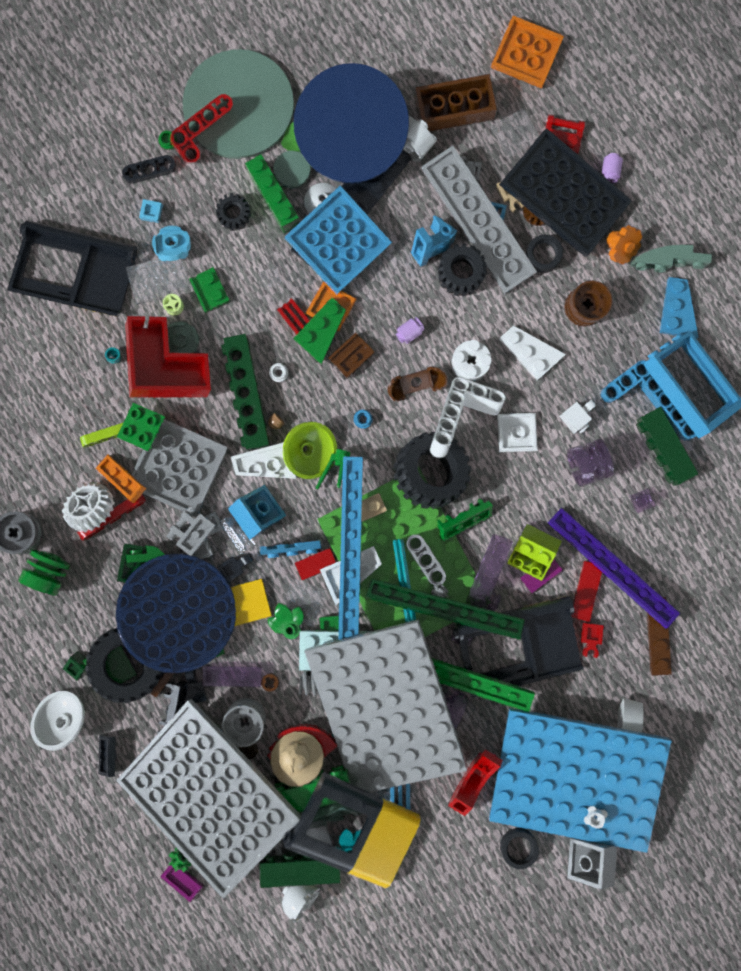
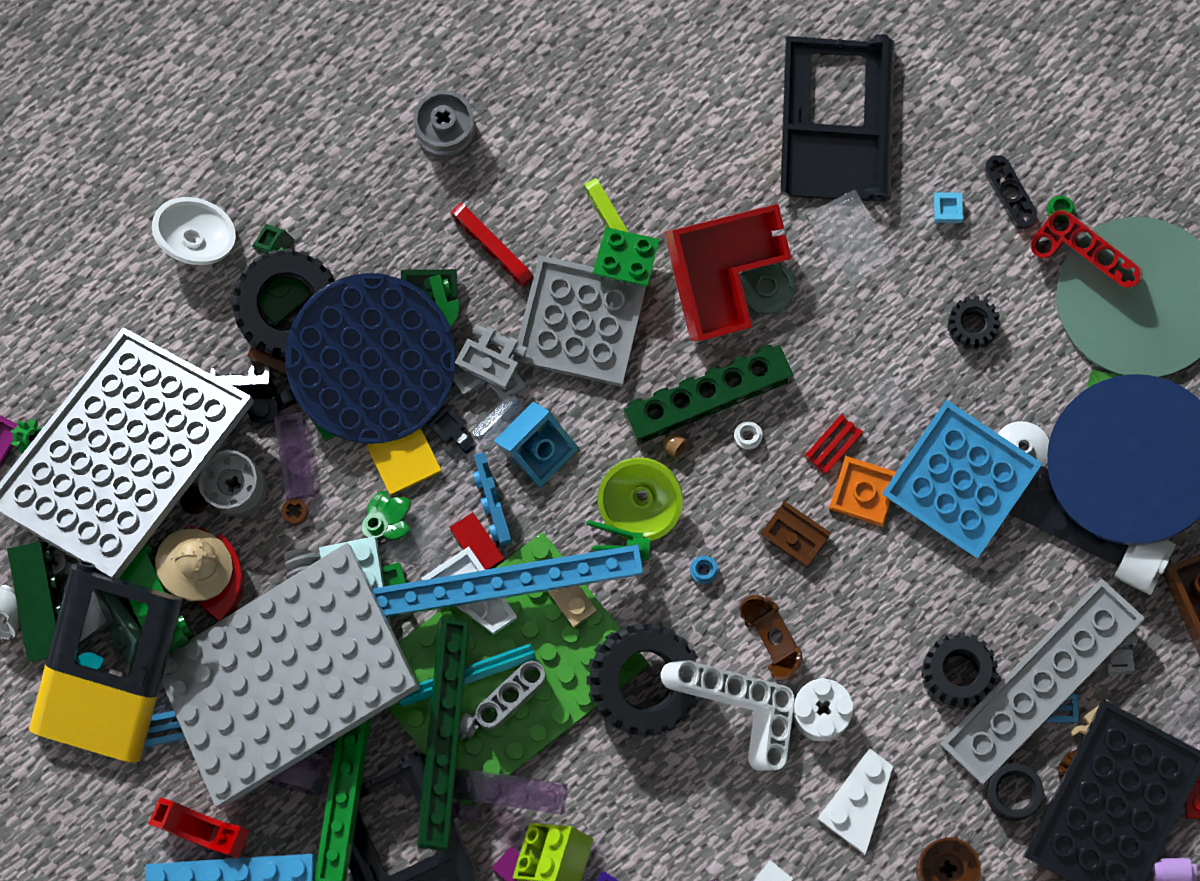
camera: 80 degrees right, 10 degrees down
(44, 572) = (395, 170): green wheel -> none
(88, 507) = (498, 209): white gear -> none
(107, 755) = (155, 308): black plate -> none
(113, 352) = (728, 198): teal hinge -> none
(121, 478) = (548, 245): orange tile -> none
(171, 252) = (894, 255): medium azure plate -> none
(171, 301) = (818, 261): yellowish green wheel -> none
(209, 290) = (850, 313): green plate -> none
(262, 463) = (608, 436): white wing -> none
(272, 193) = (1012, 372): green brick -> none
(291, 169) = (1055, 390): sand green tile -> none
(320, 330) = (822, 481): green wing -> none
(409, 330) = (850, 612): lavender brick -> none
(432, 244) = (983, 615): dark azure tile -> none
(465, 519) = (581, 745): green plate -> none
(517, 432) = (730, 802): white tile -> none

